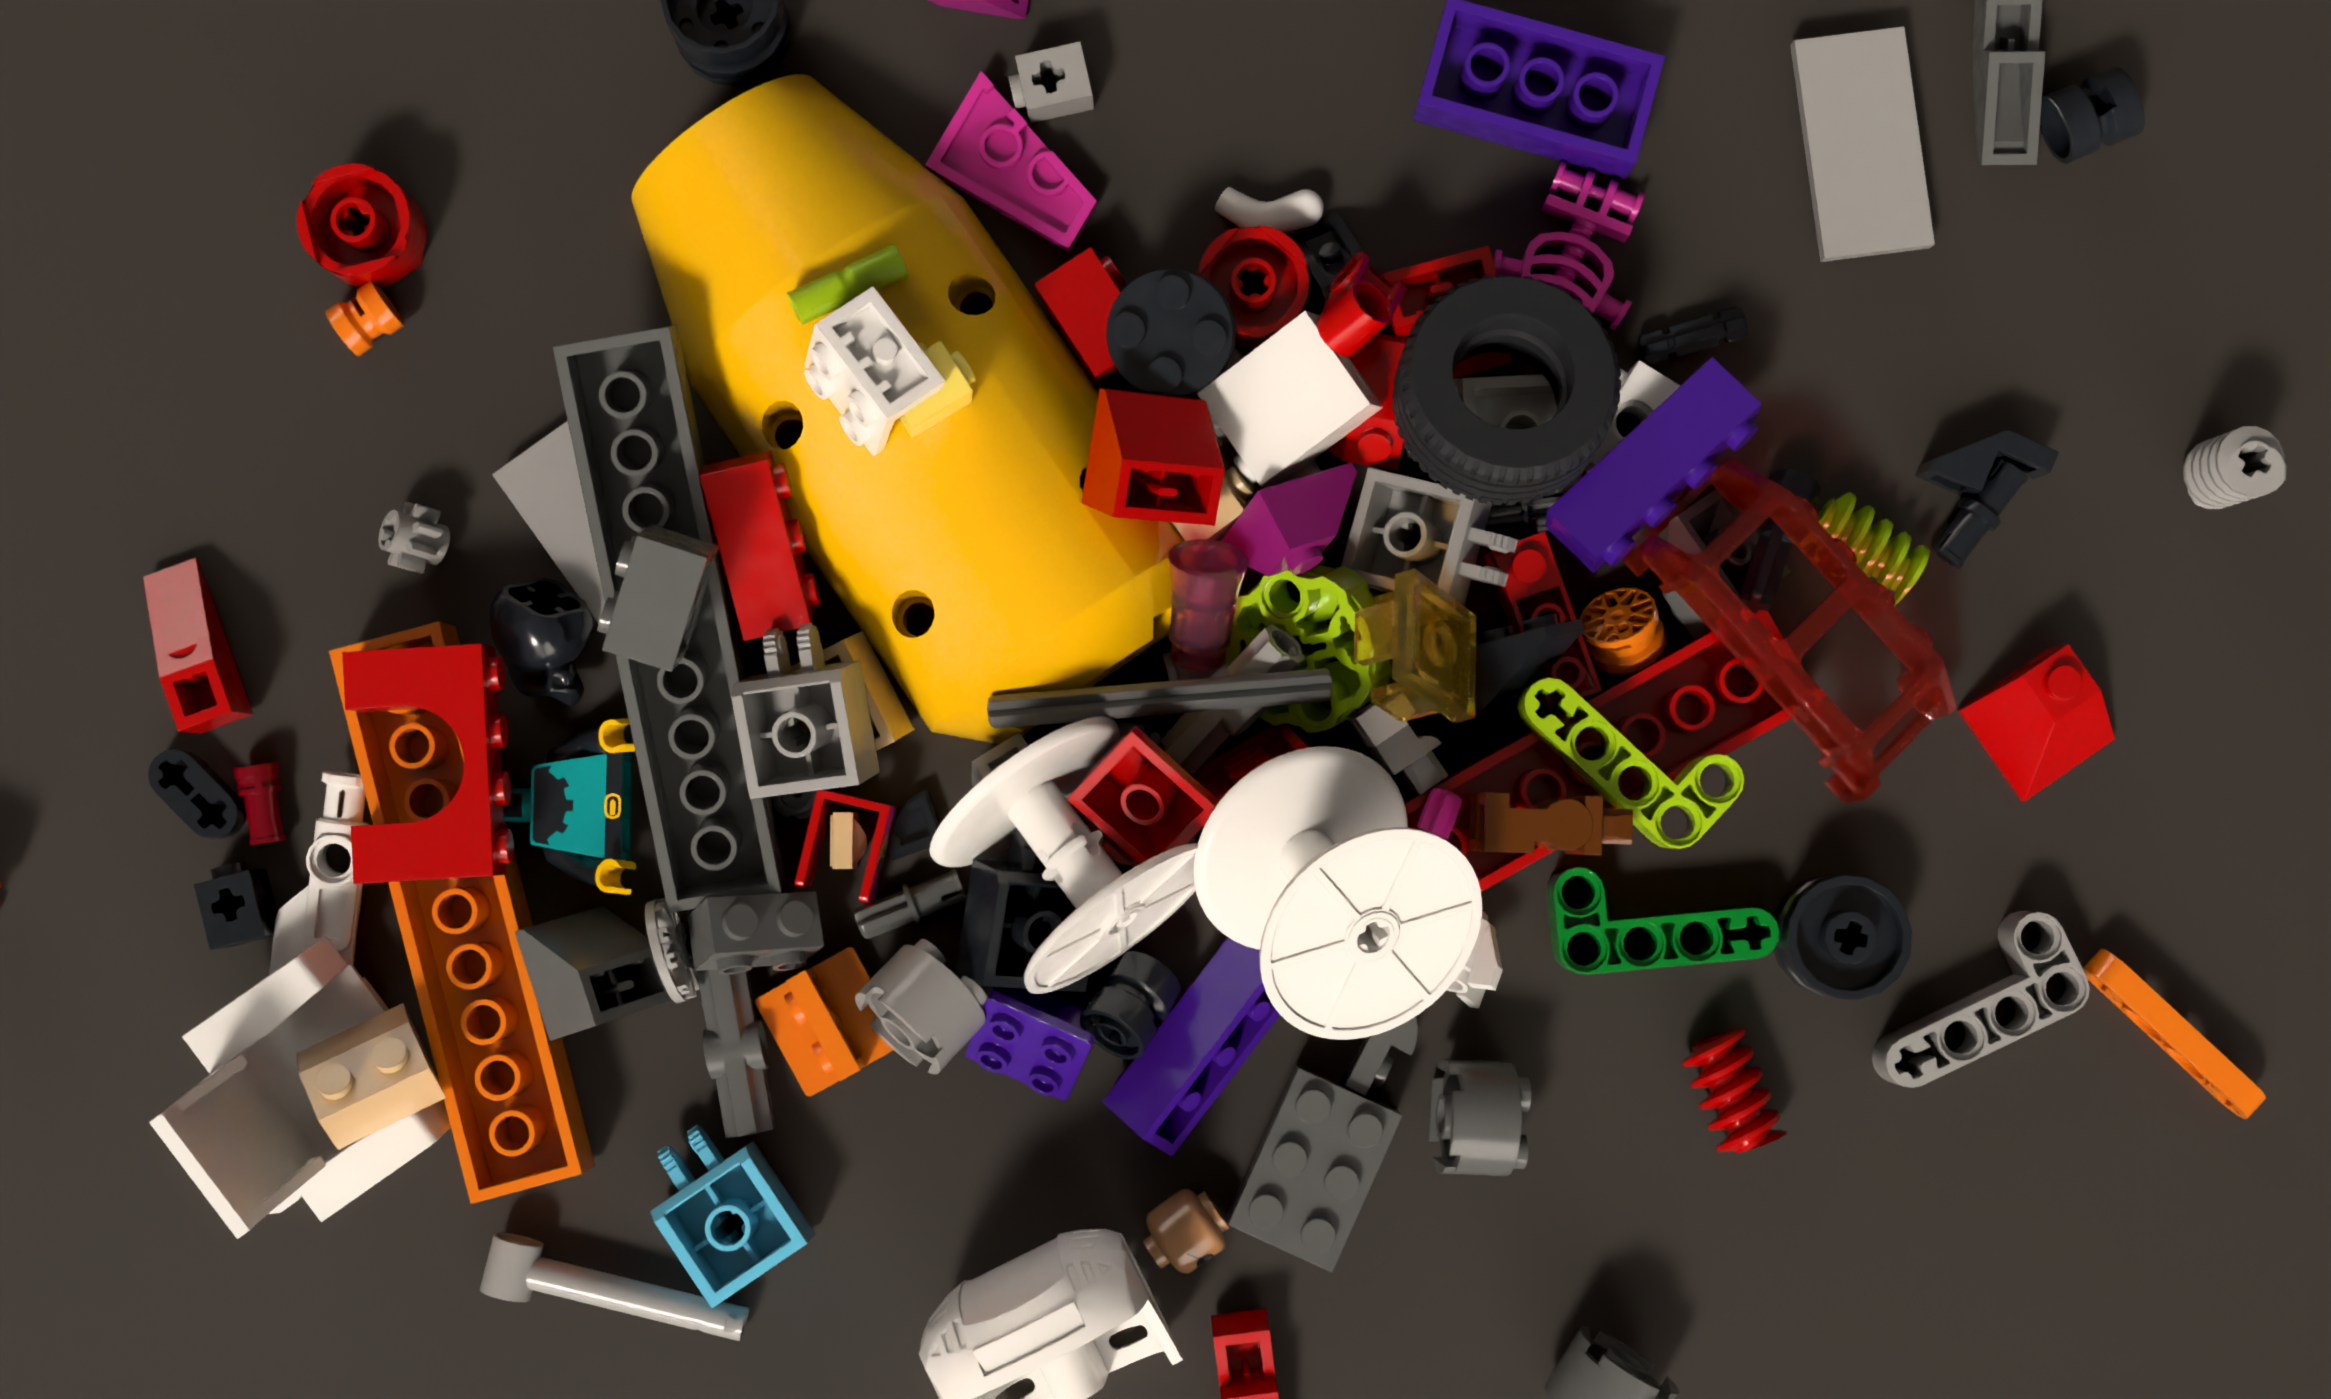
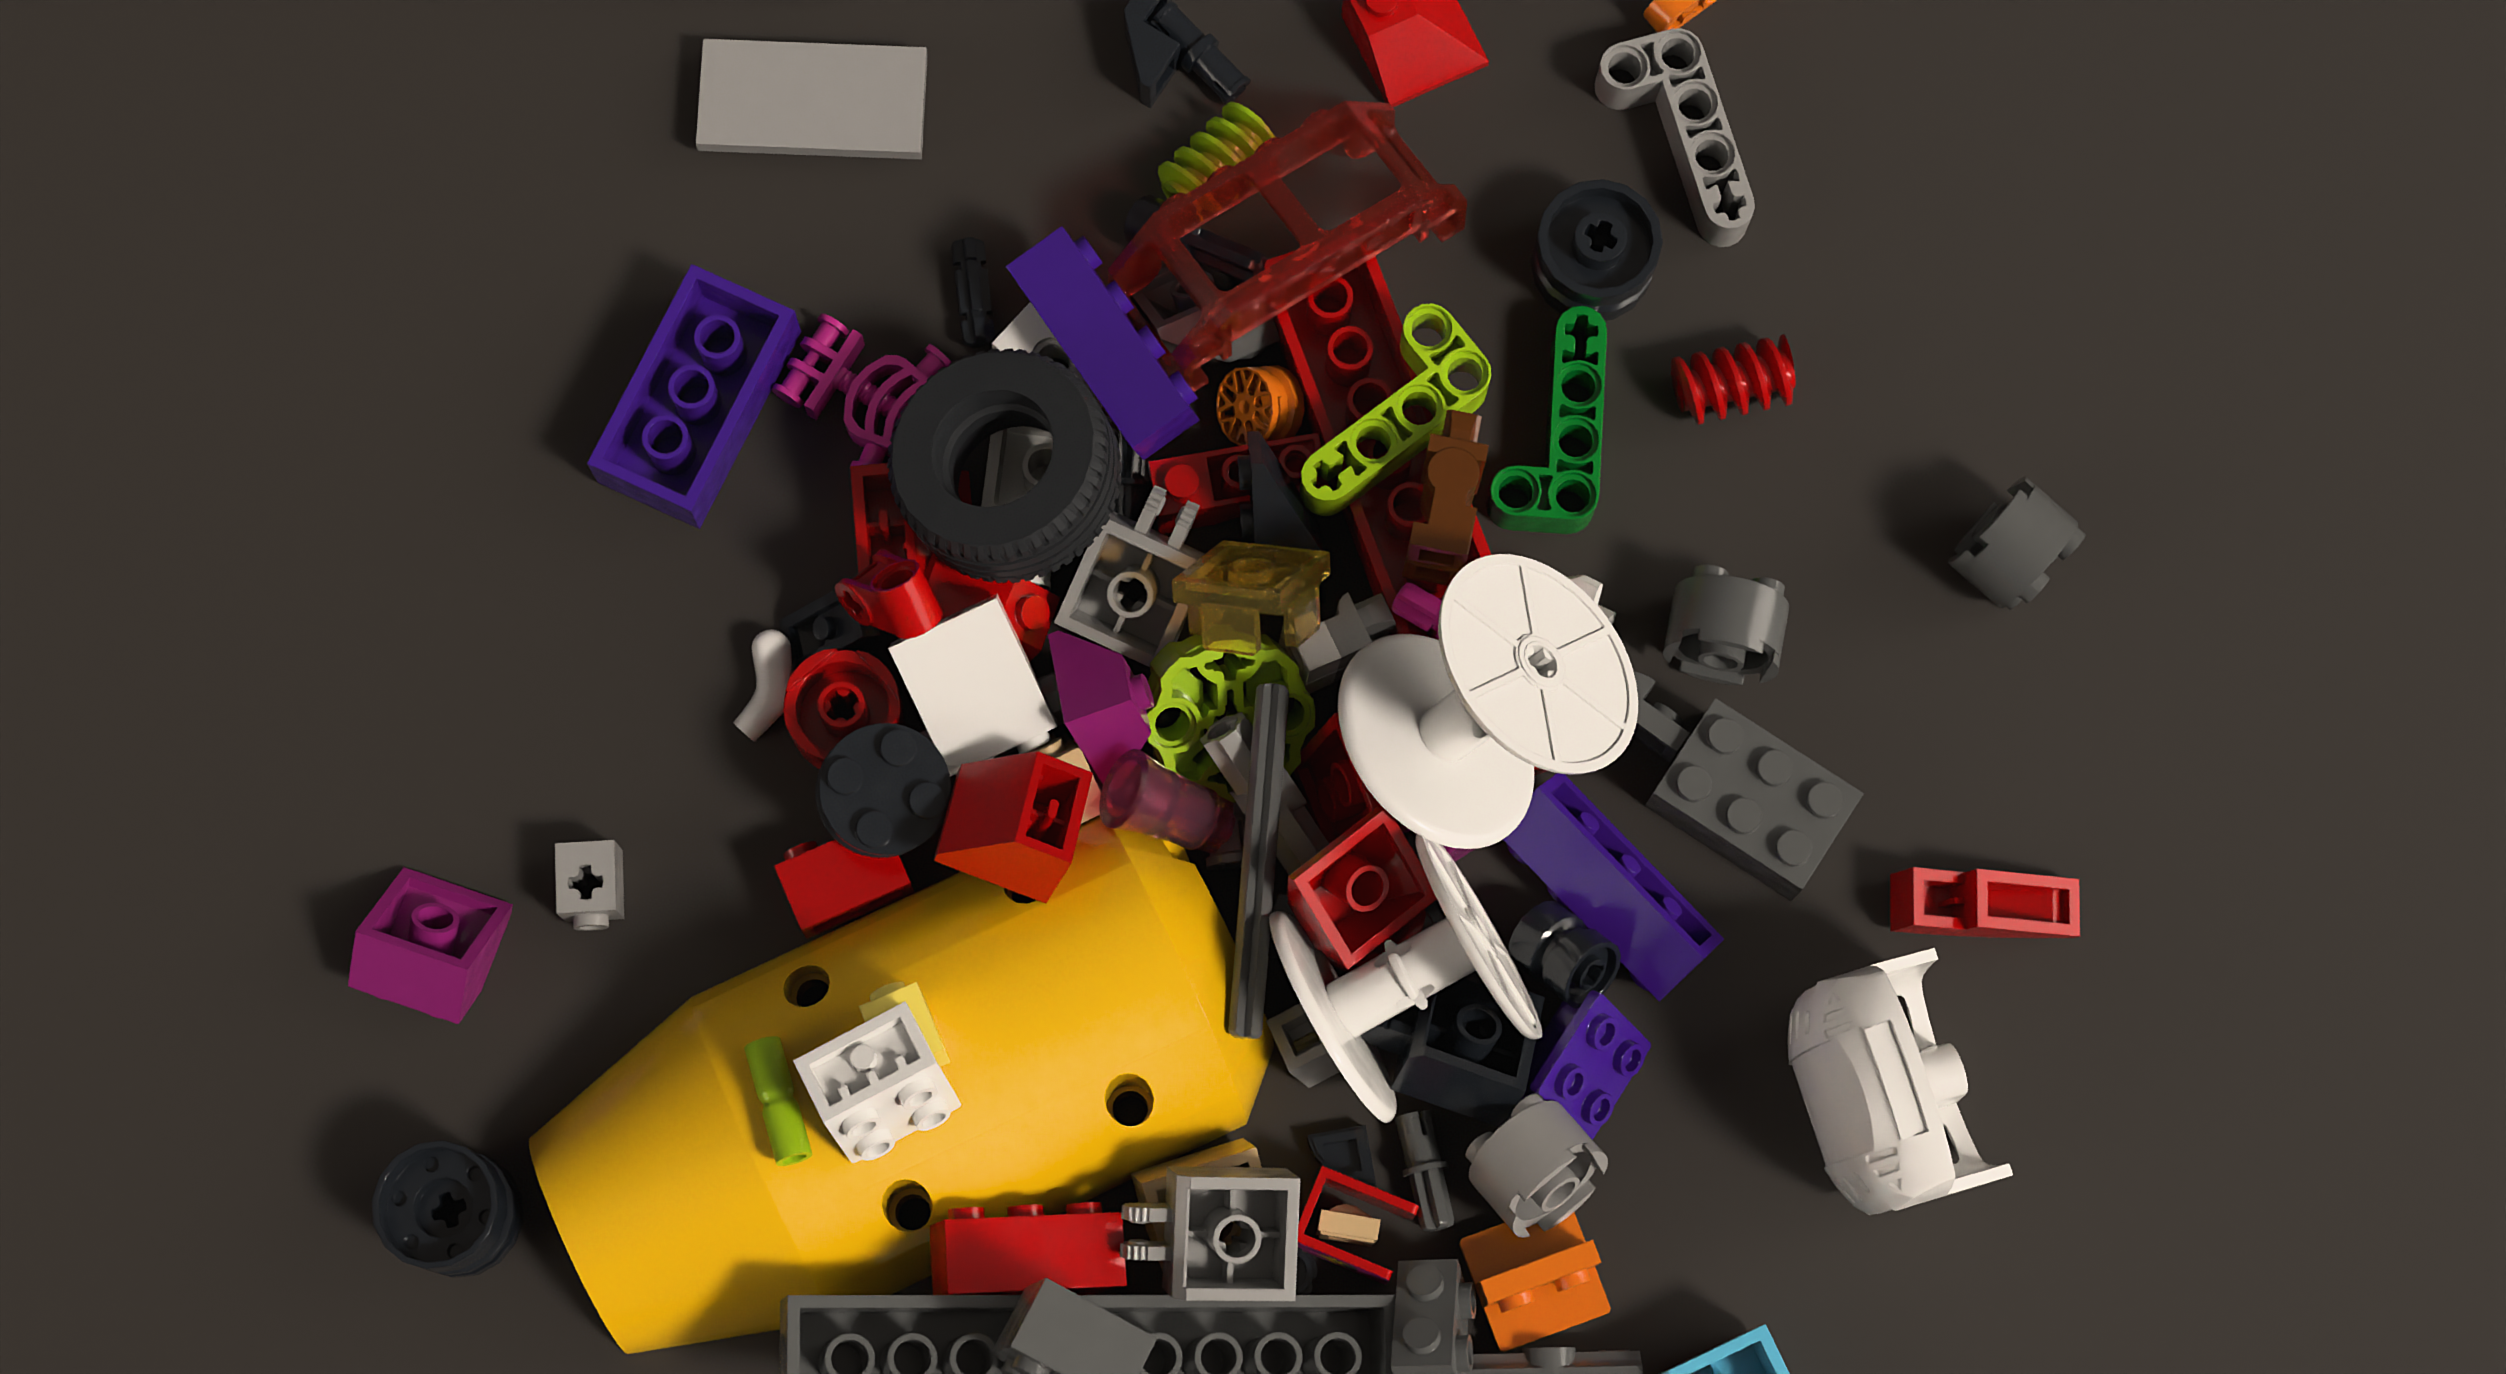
camera: 85 degrees left, 10 degrees down
(1007, 167) = (669, 945): dark pink wing -> none
(1185, 1231) = (1801, 940): medium nougat head -> none

